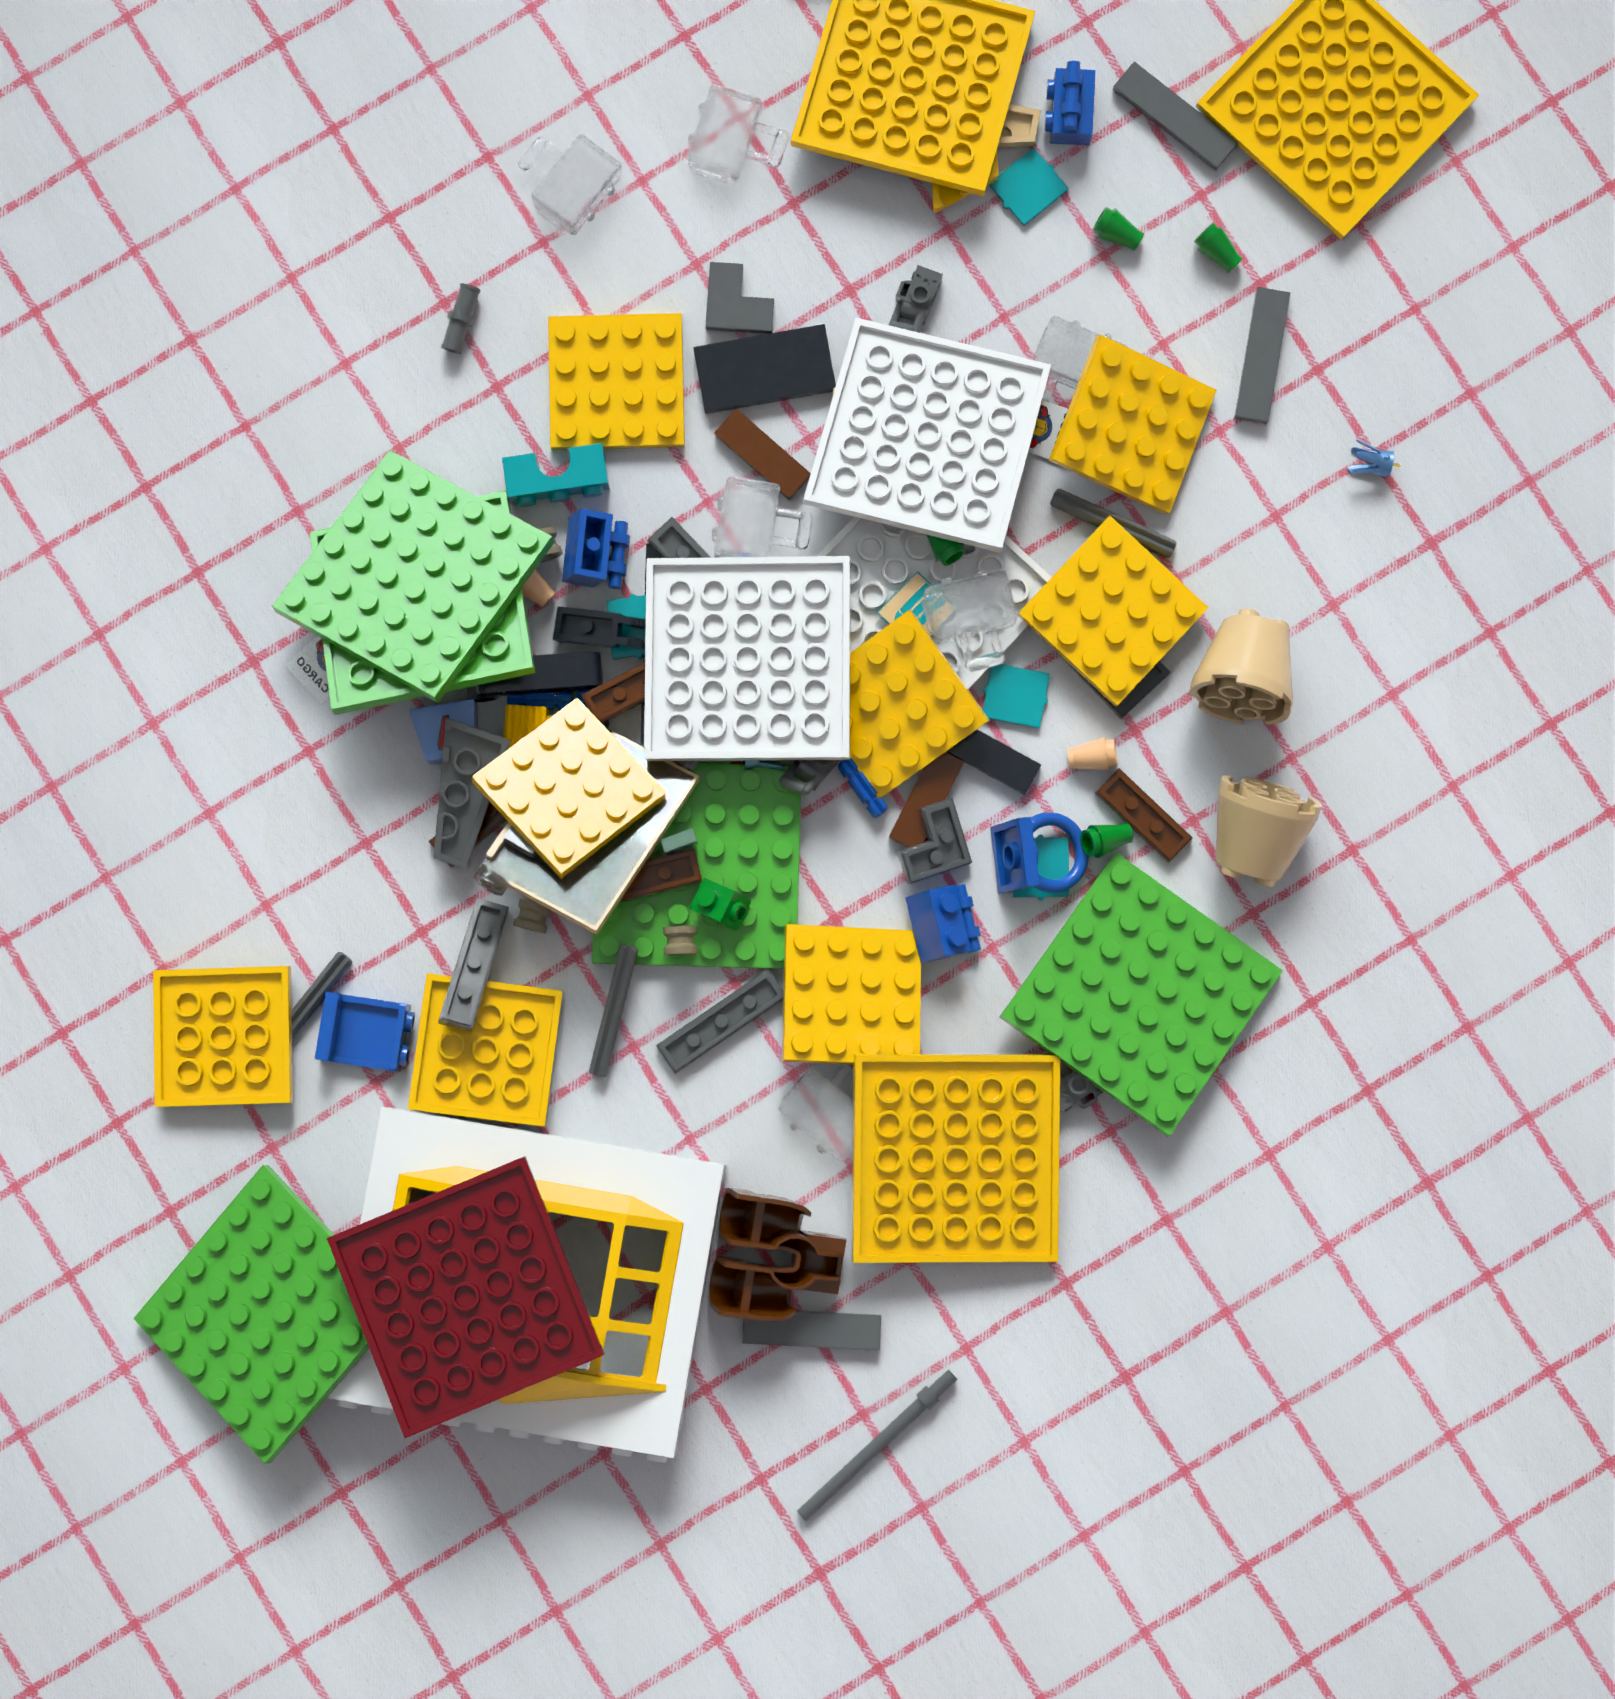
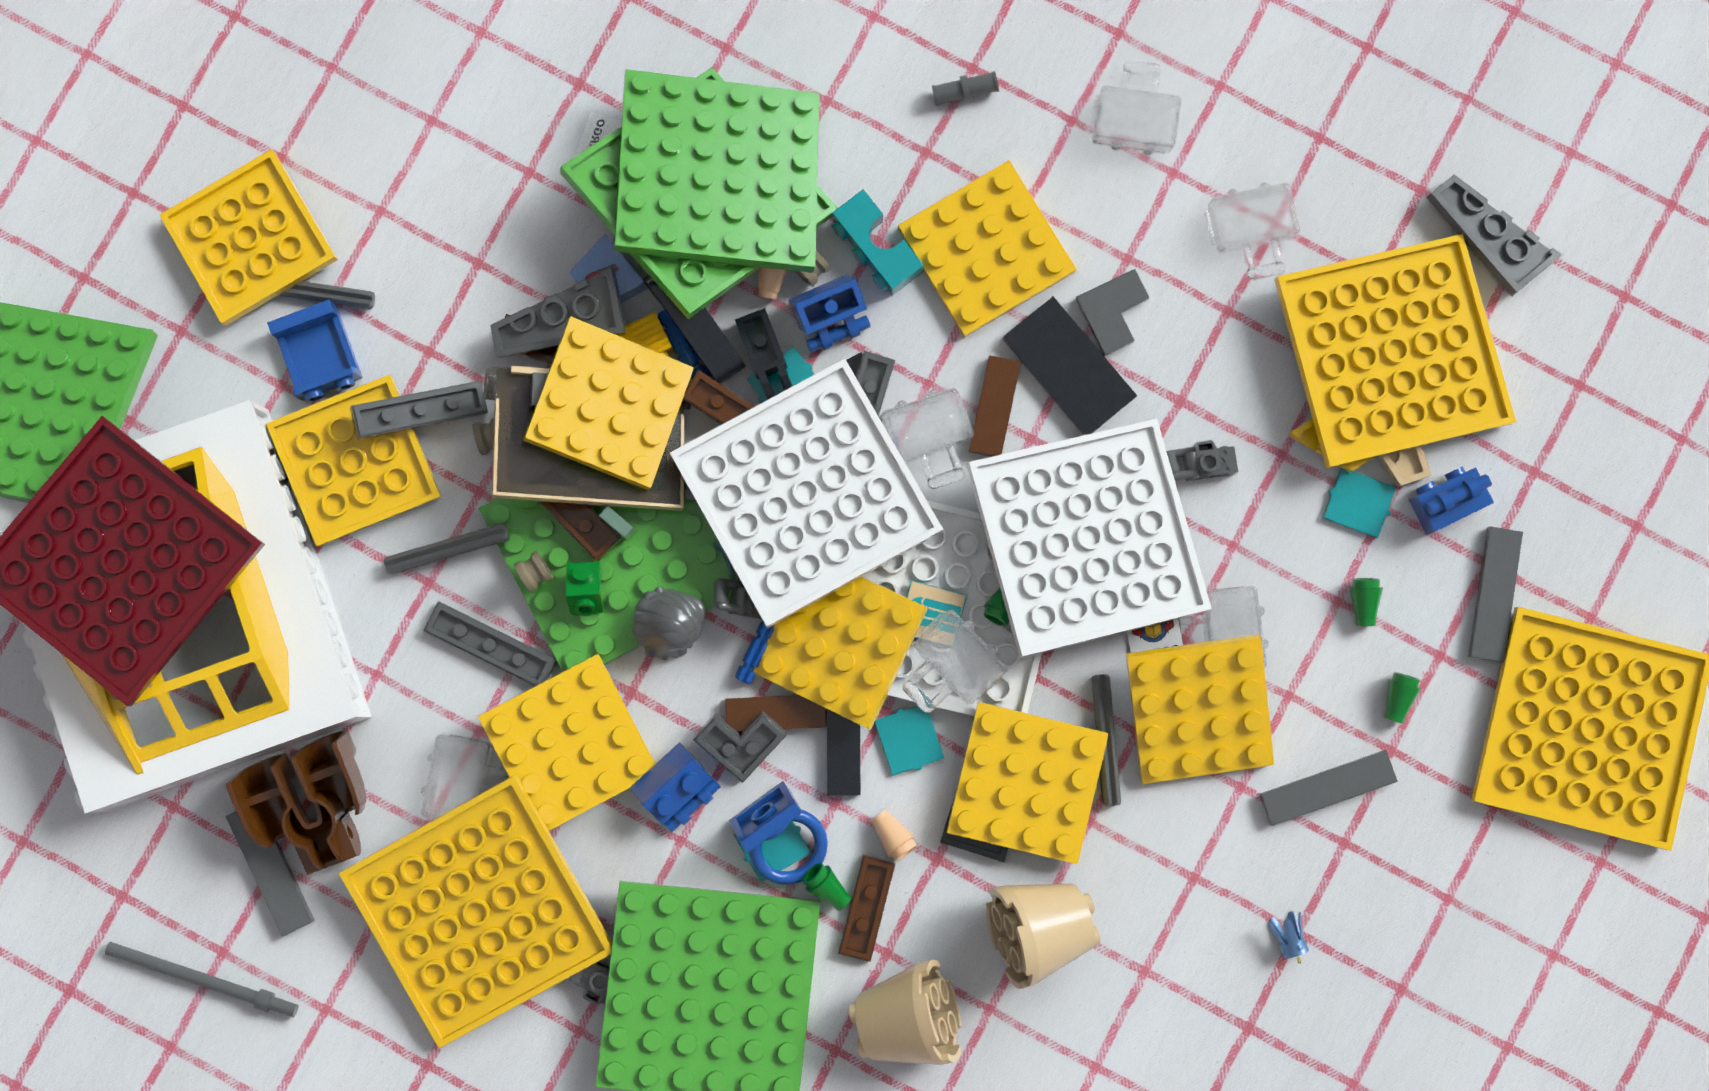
camera: 60 degrees right, 0 degrees up
(793, 847) = (668, 622): none -> dark grey hair

